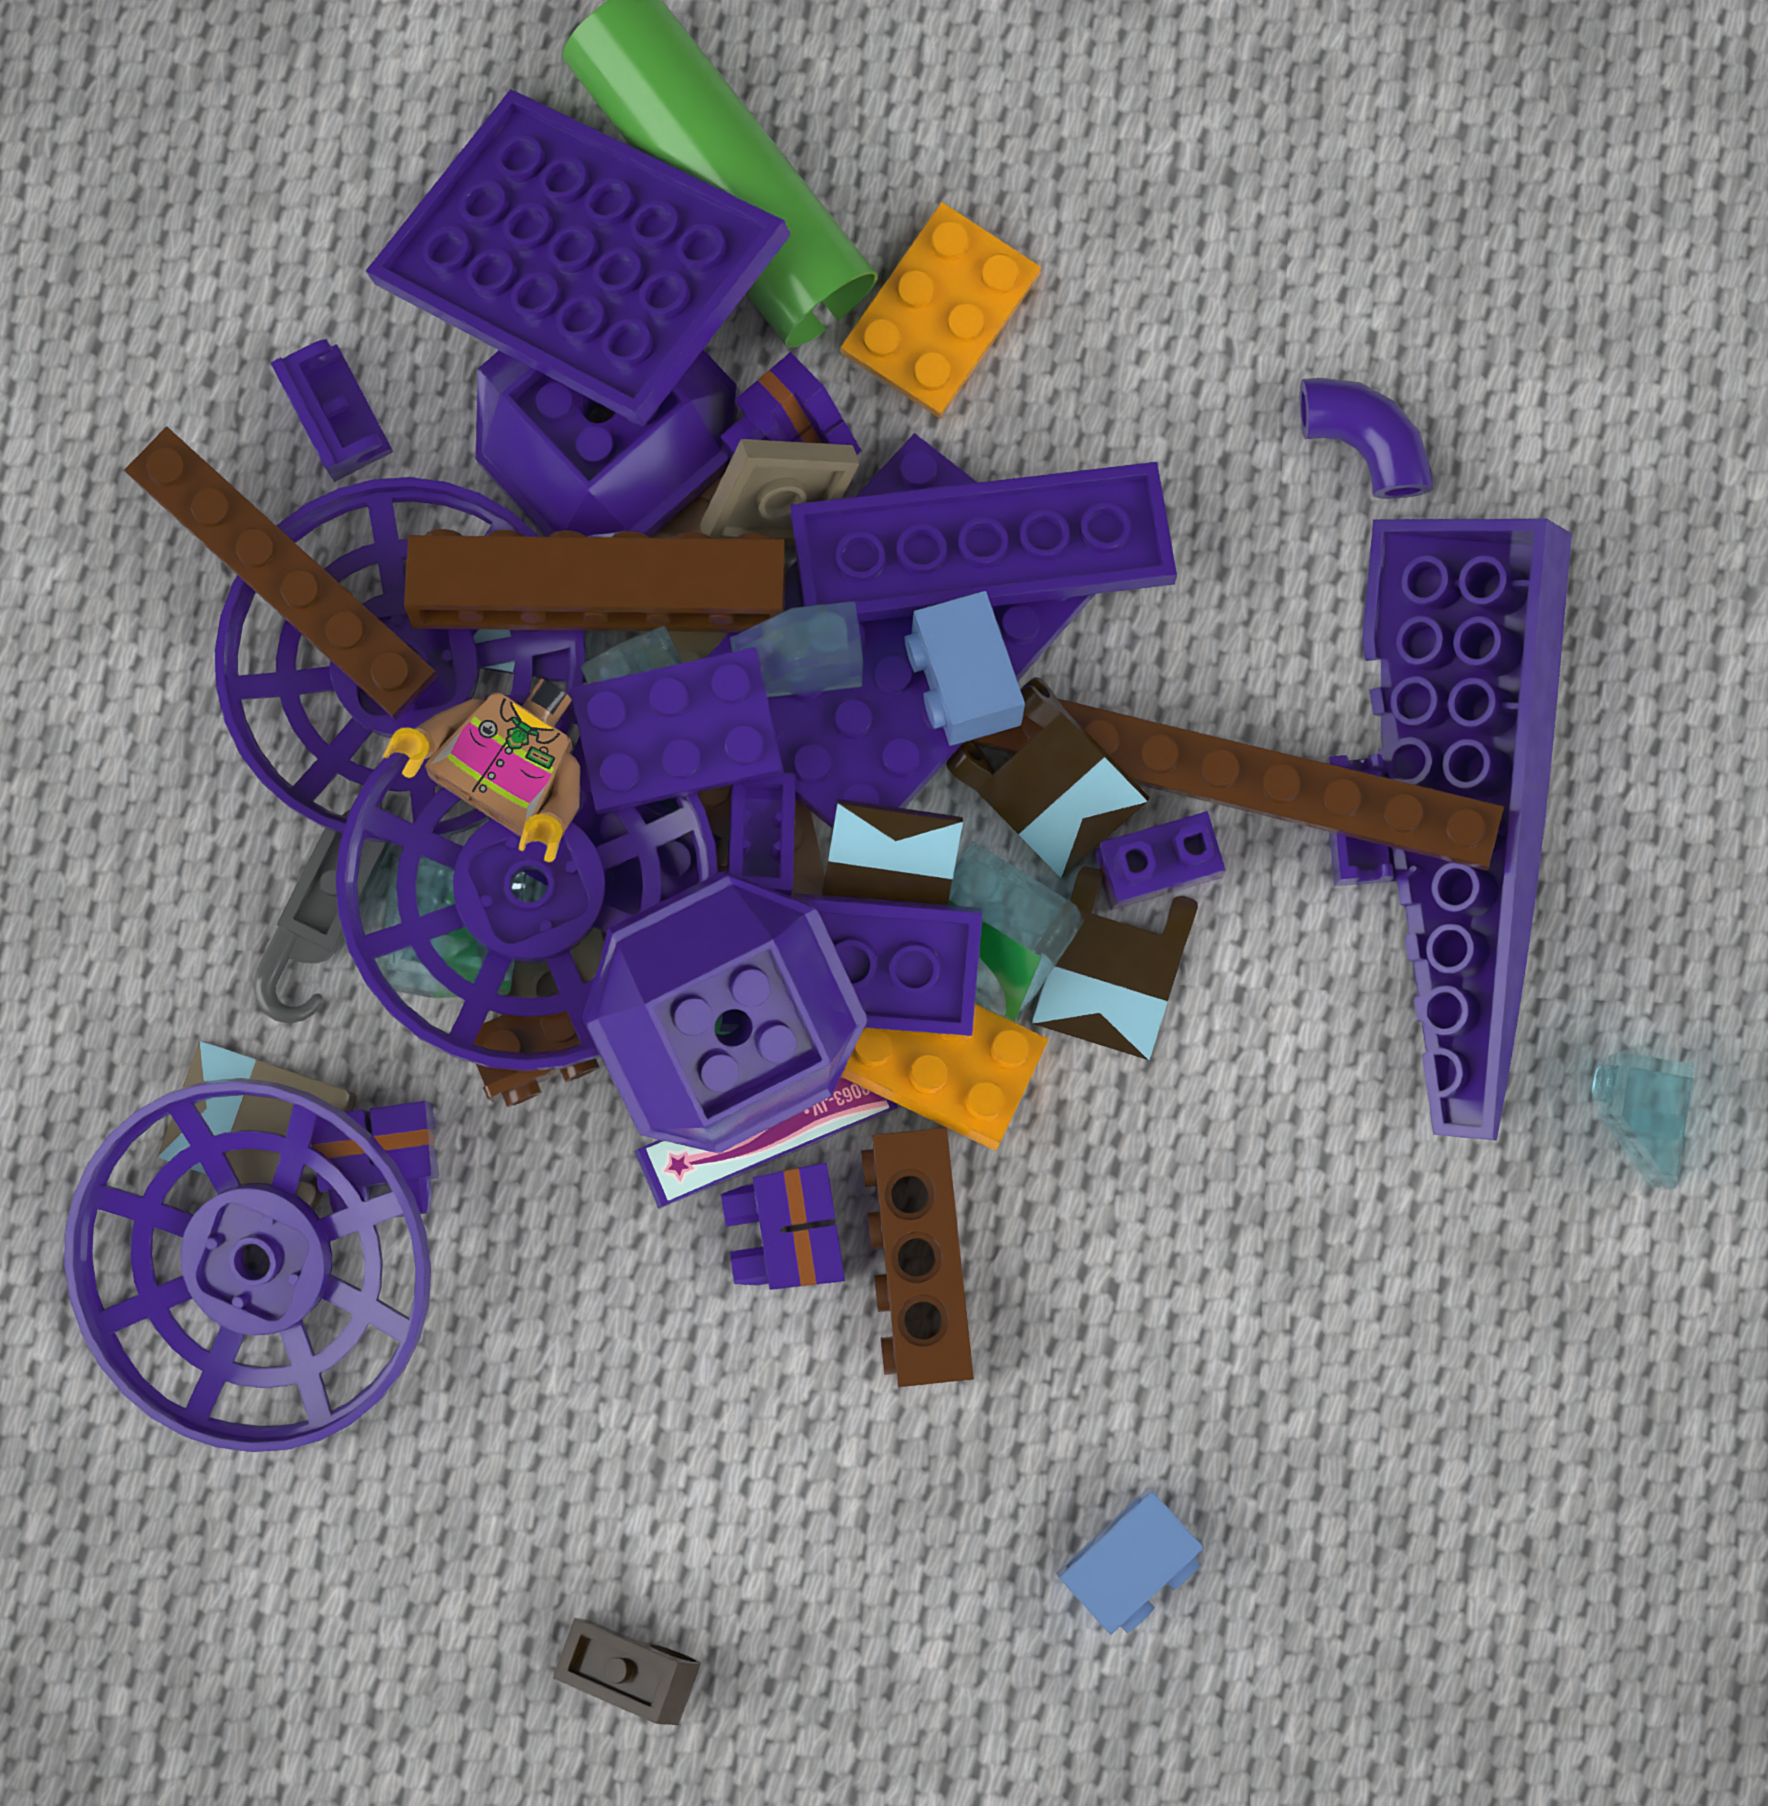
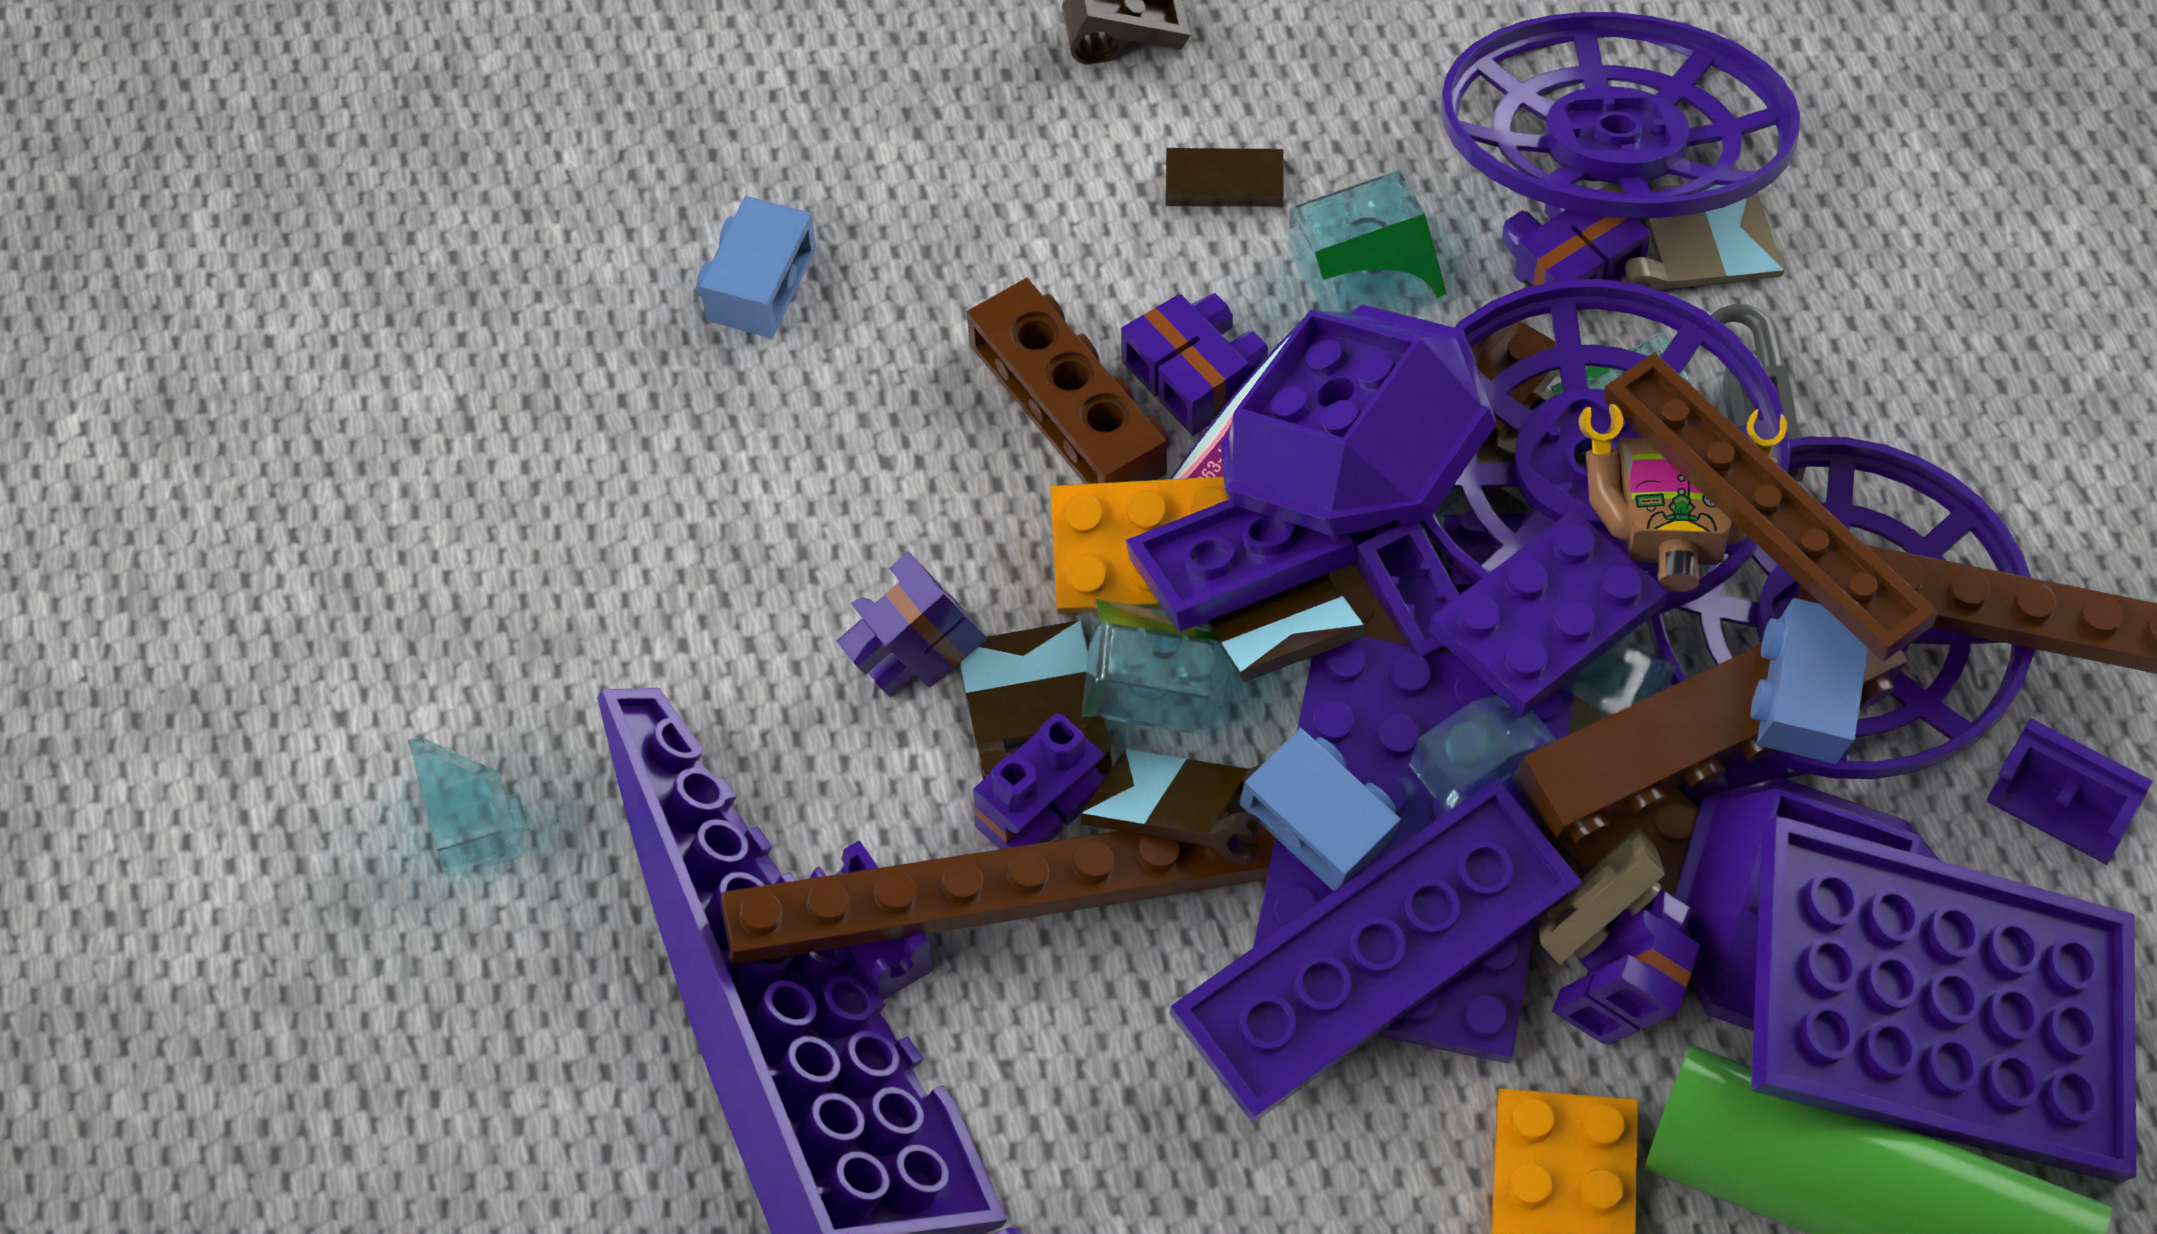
camera: 155 degrees right, 25 degrees down
(457, 679) = (1771, 507): none -> reddish brown plate
(510, 537) = (1811, 683): none -> medium blue brick
(566, 1254) = (1367, 248): none -> clear light blue slope
(636, 1434) = (1224, 177): none -> dark brown tile
(1194, 1063) = (910, 630): none -> dark purple hips

